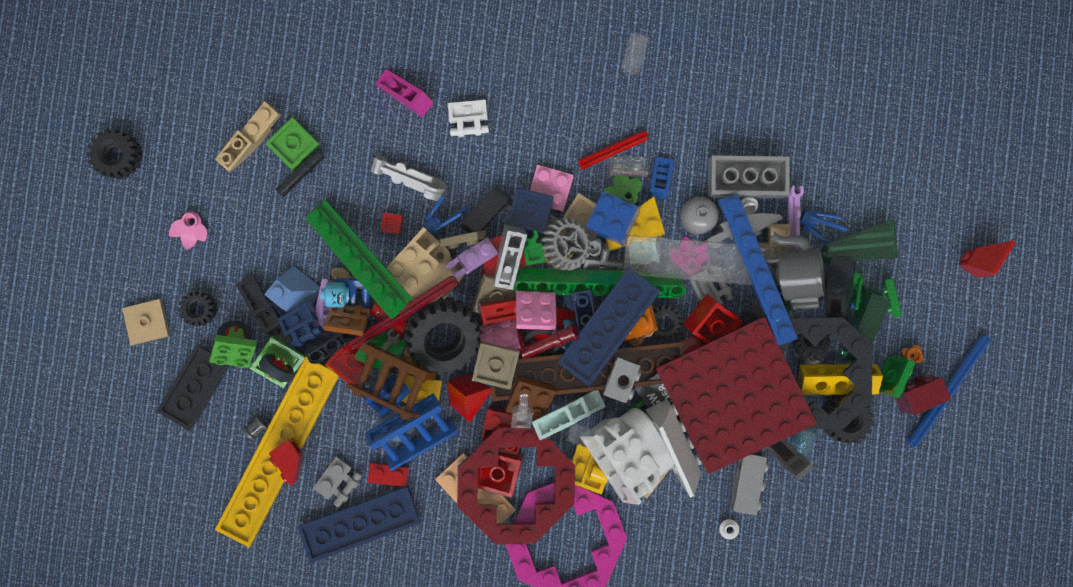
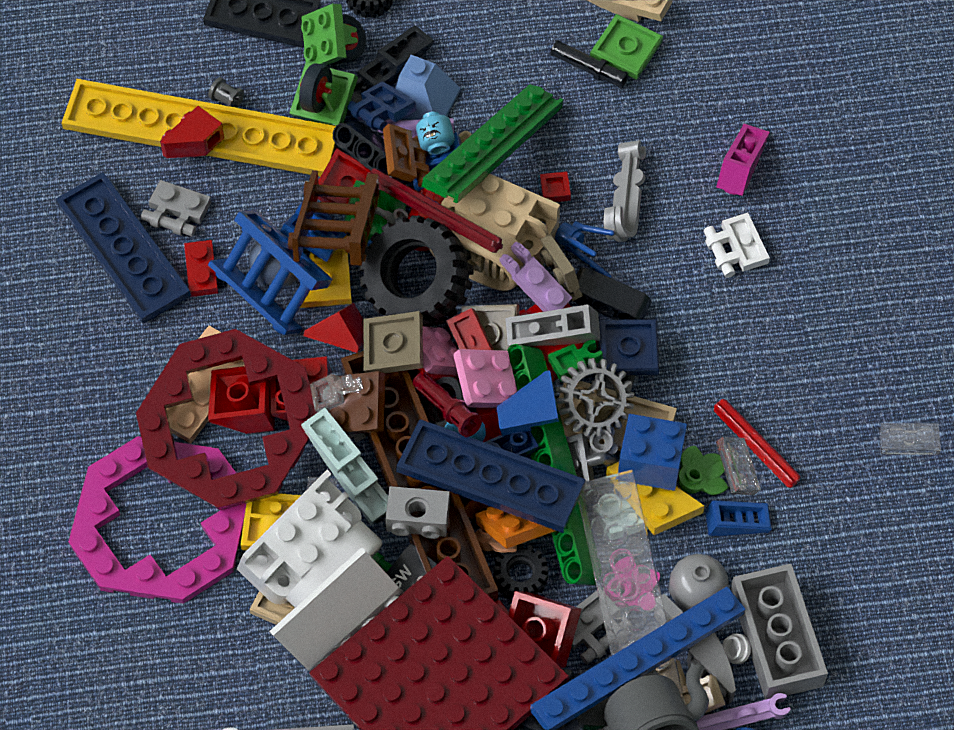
camera: 75 degrees right, 25 degrees down
(554, 184) = (678, 377): bright pink plate -> none
(566, 288) = (529, 406): none -> blue slope

